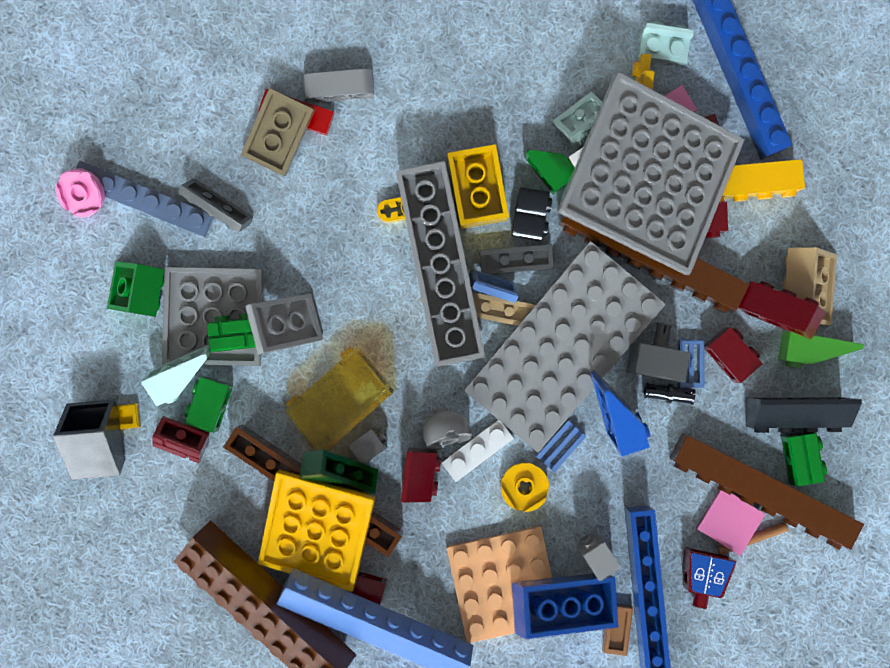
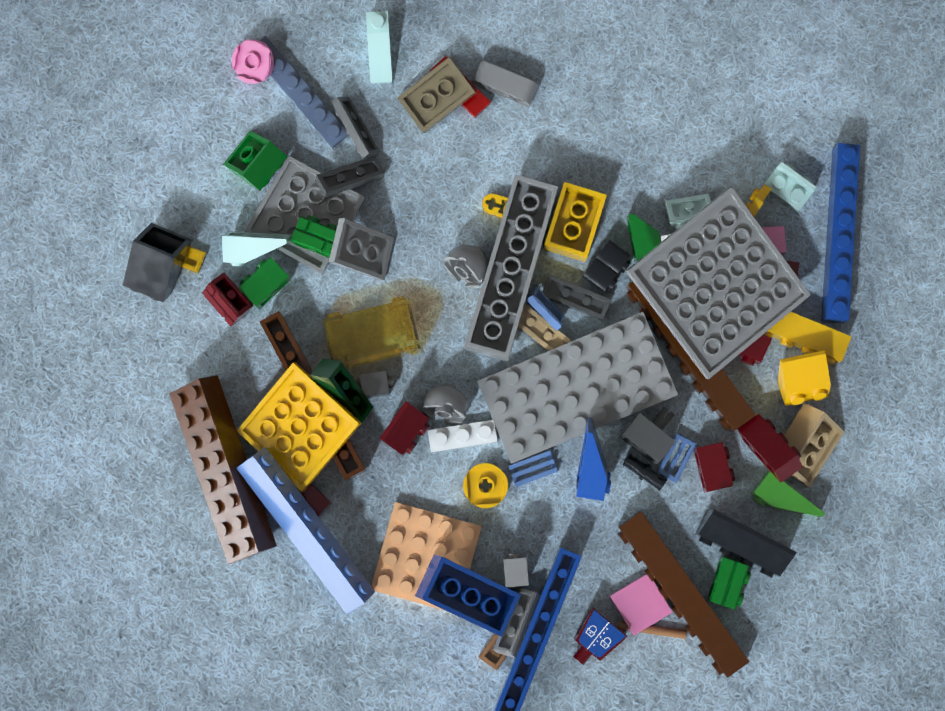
camera: 25 degrees right, 5 degrees down
(196, 113) = (379, 47): none -> light aqua slope
(235, 257) = (350, 176): none -> dark grey plate
(395, 282) = (467, 264): none -> light grey cylinder
(627, 608) = (518, 623): none -> light grey tile
(778, 224) = (804, 378): none -> yellow slope

